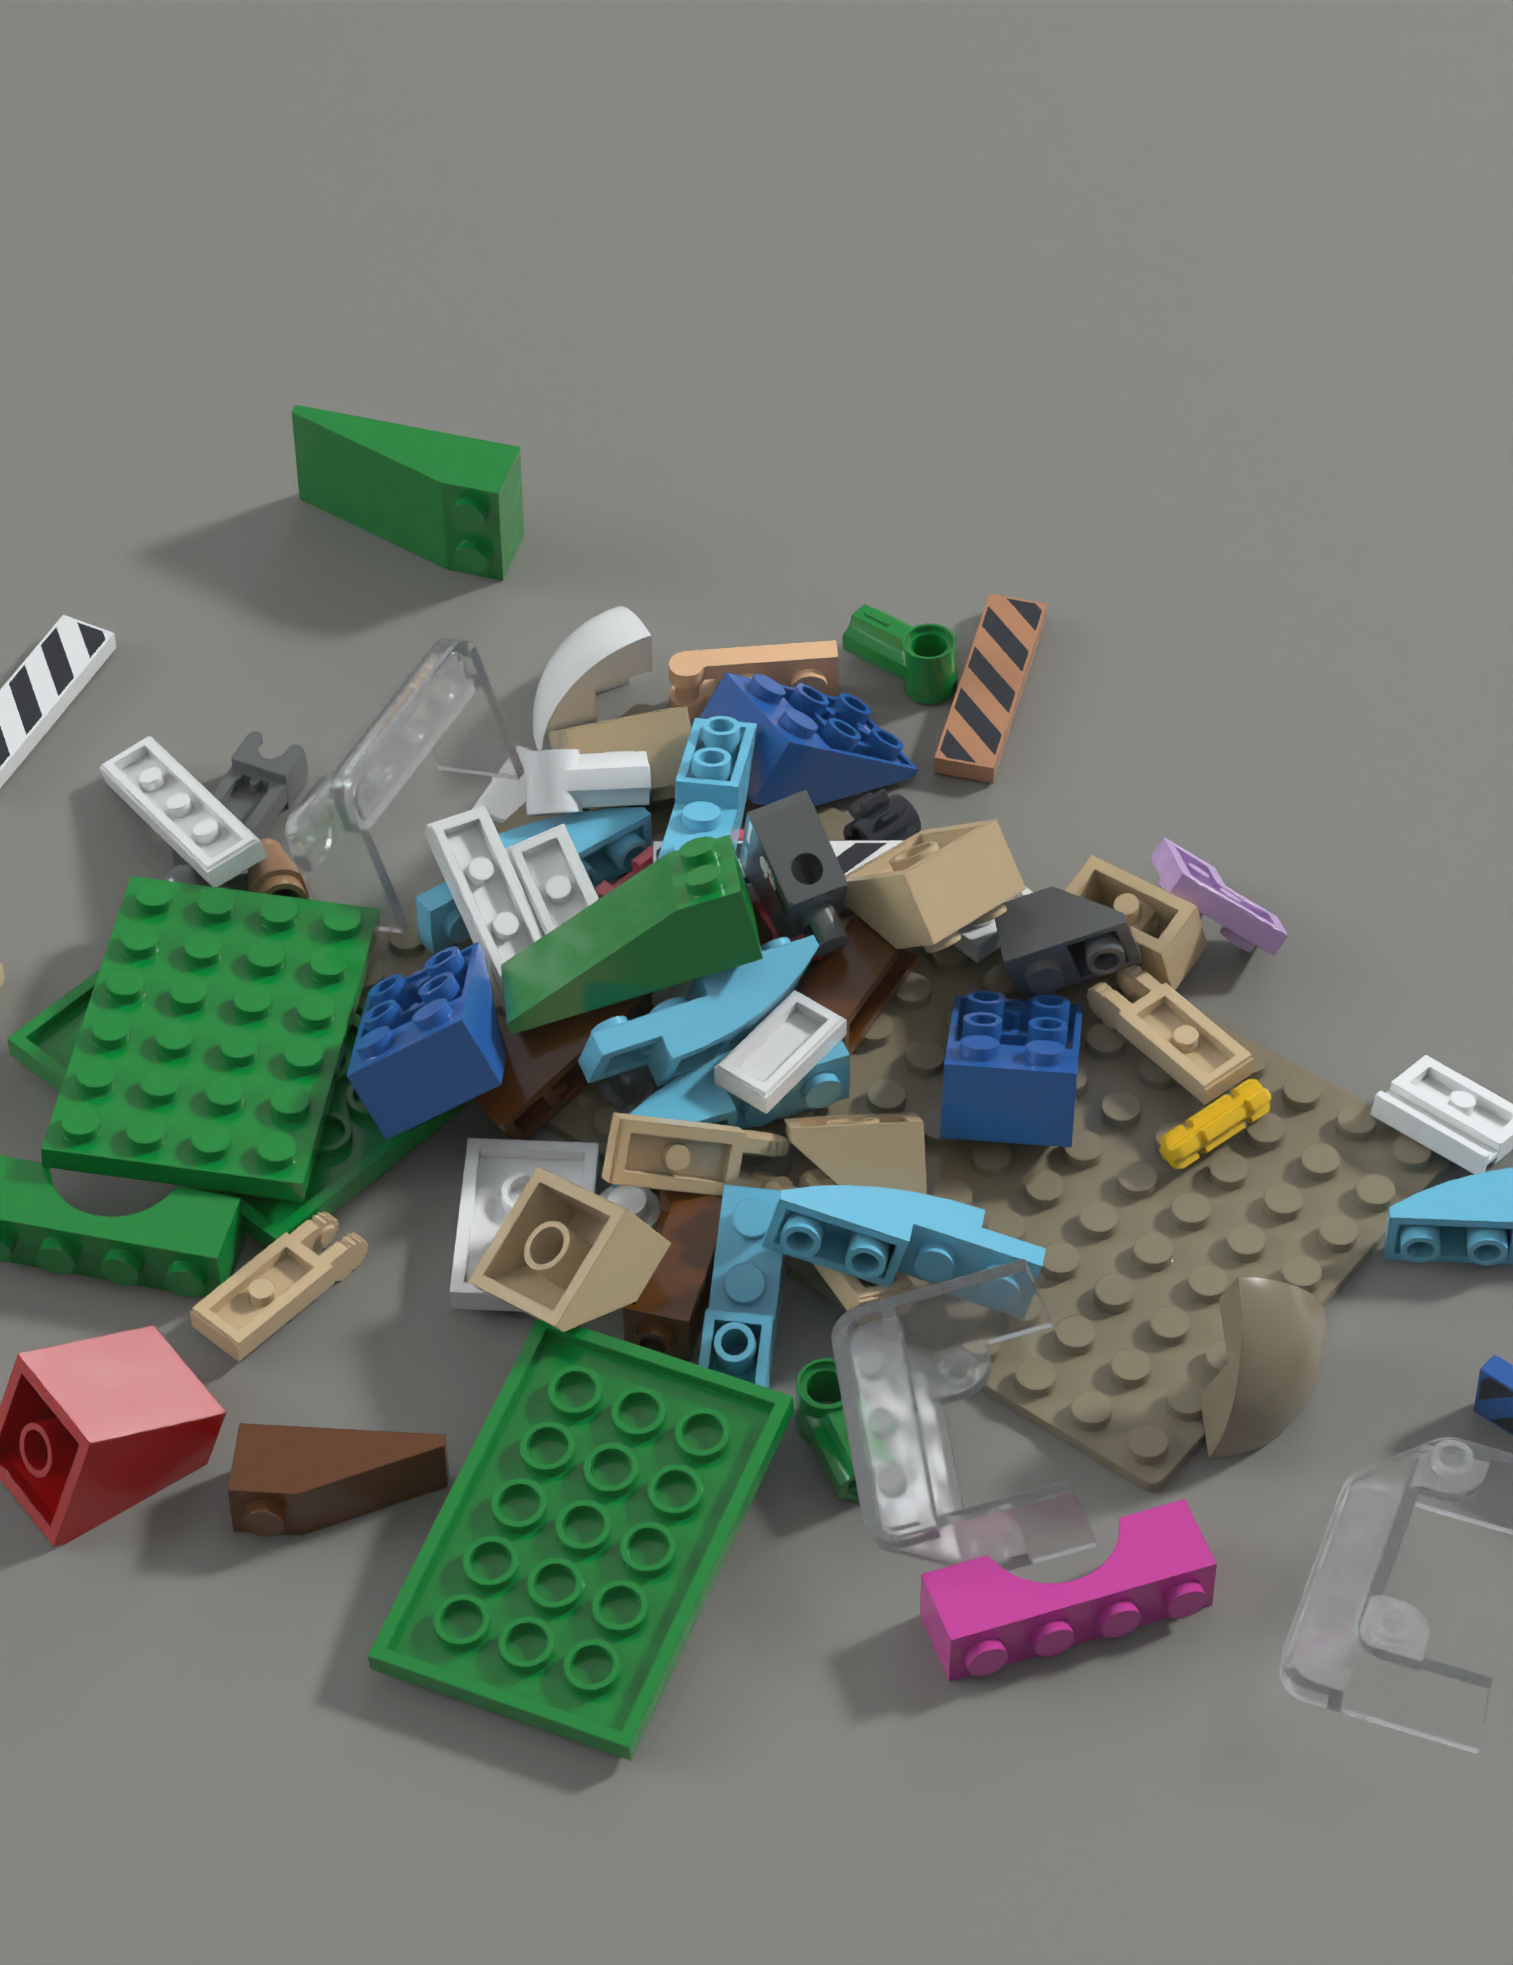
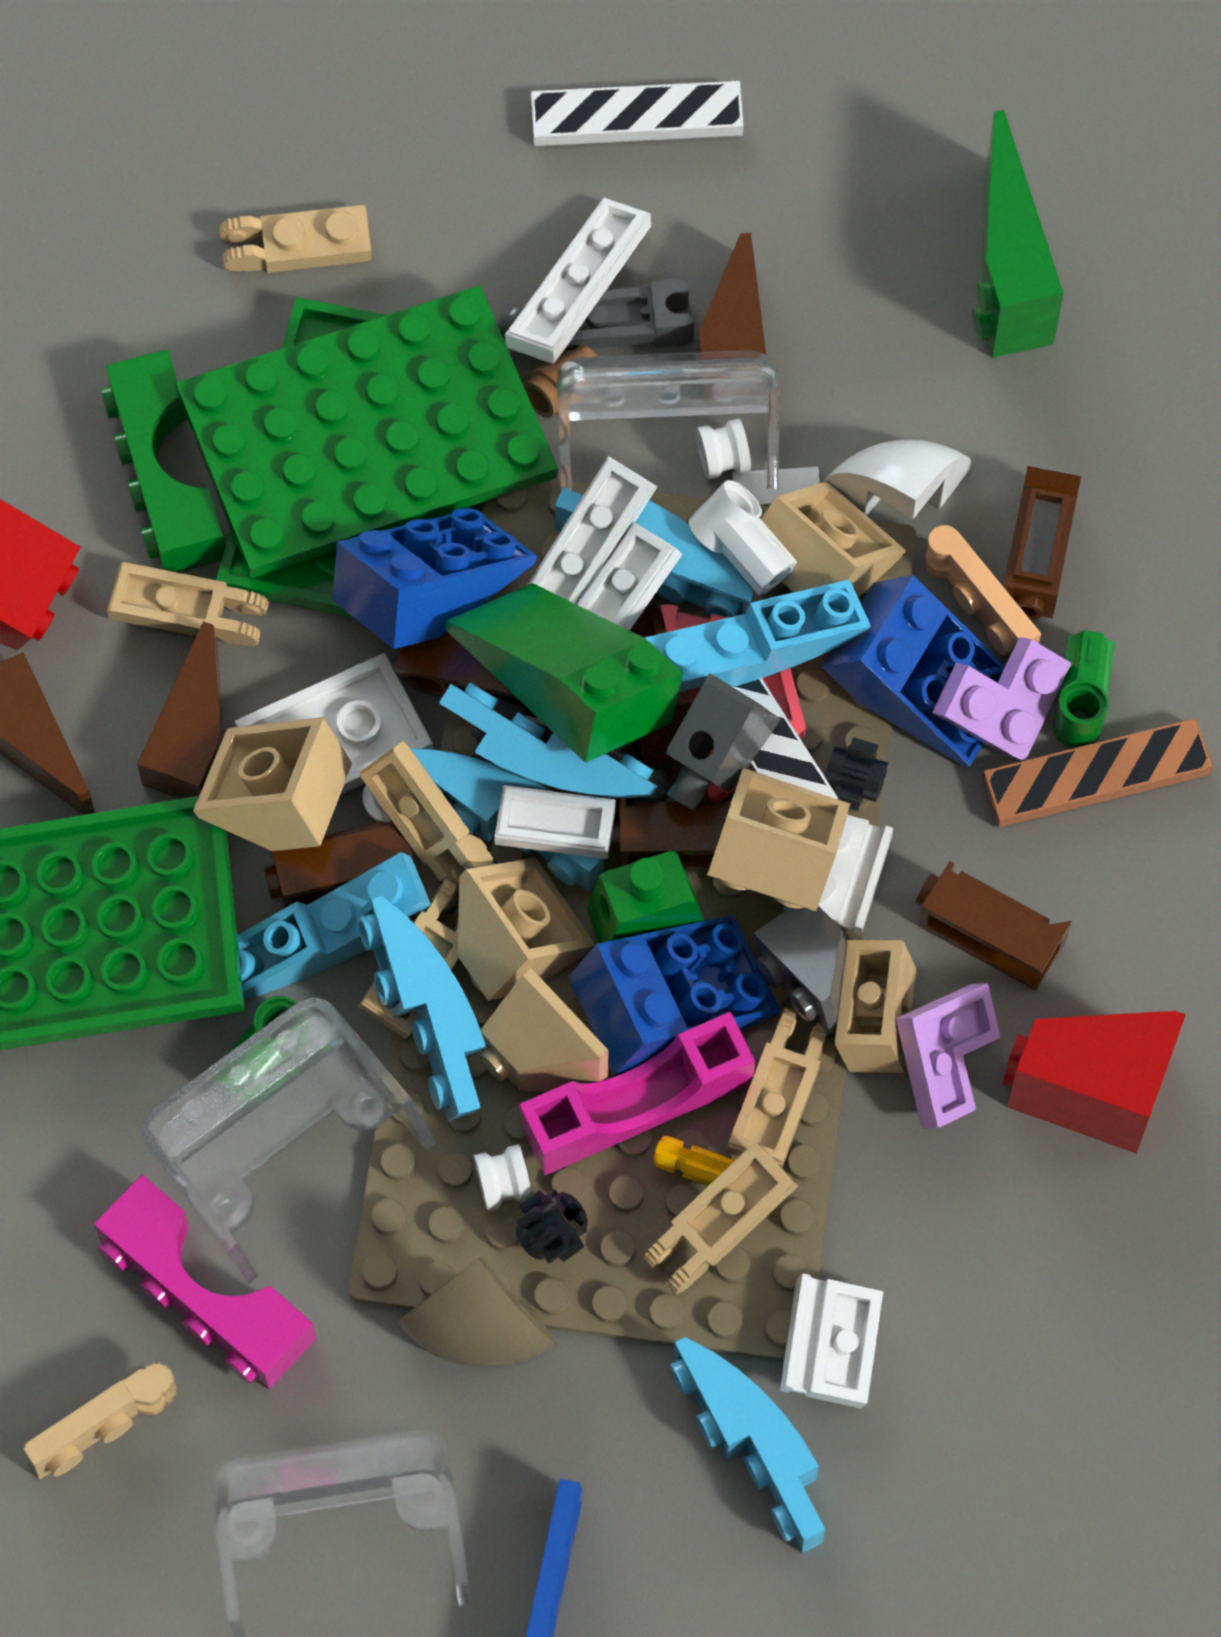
camera: 60 degrees right, 20 degrees up
(304, 711) = (735, 311): none -> reddish brown slope
(426, 1331) = (188, 725): none -> reddish brown slope
(450, 787) = (723, 449): none -> white wheel
(721, 608) = (1041, 540): none -> reddish brown window
(881, 697) = (1010, 711): none -> lavender plate
(916, 1010) = (643, 898): none -> green torso
(1011, 1157) = (540, 1040): none -> tan slope
(1099, 818) = (990, 926): none -> reddish brown window
(1110, 1128) = (594, 1116): none -> dark pink arch
(1123, 1279) = (502, 1177): none -> white wheel
(1167, 1749) = (101, 1418): none -> tan hinge
(1204, 1259) = (551, 1226): none -> black gear
(1281, 1119) = (723, 1214): none -> tan hinge
(1318, 794) = (1094, 1072): none -> red slope

